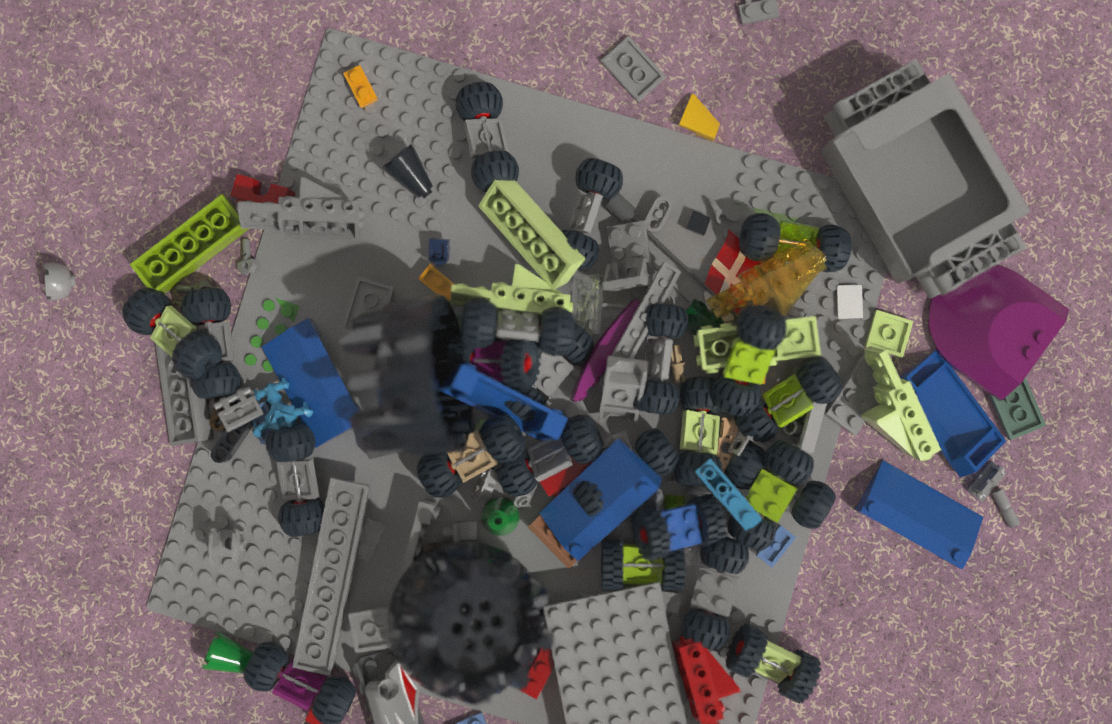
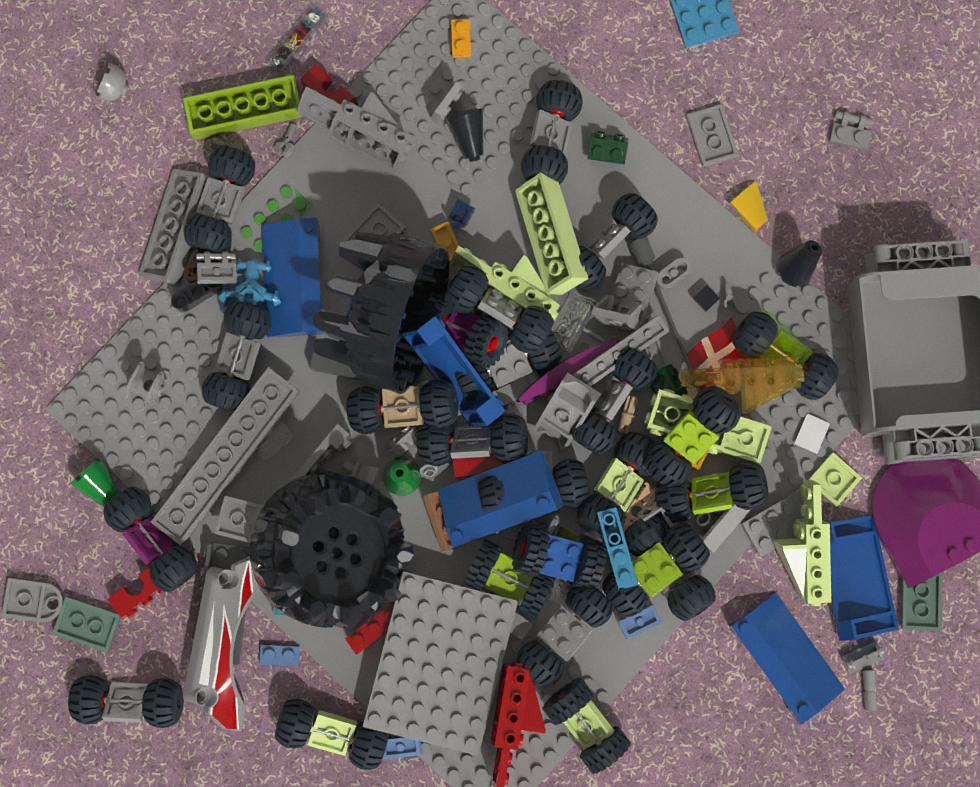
camera: 25 degrees right, 5 degrees down
(152, 314) = (180, 150): black plate -> none
(209, 157) = (297, 38): none -> tile
(378, 147) = (451, 98): none -> light grey plate
(544, 125) = (608, 147): none -> dark green bracket
(768, 152) = (799, 263): none -> black cone

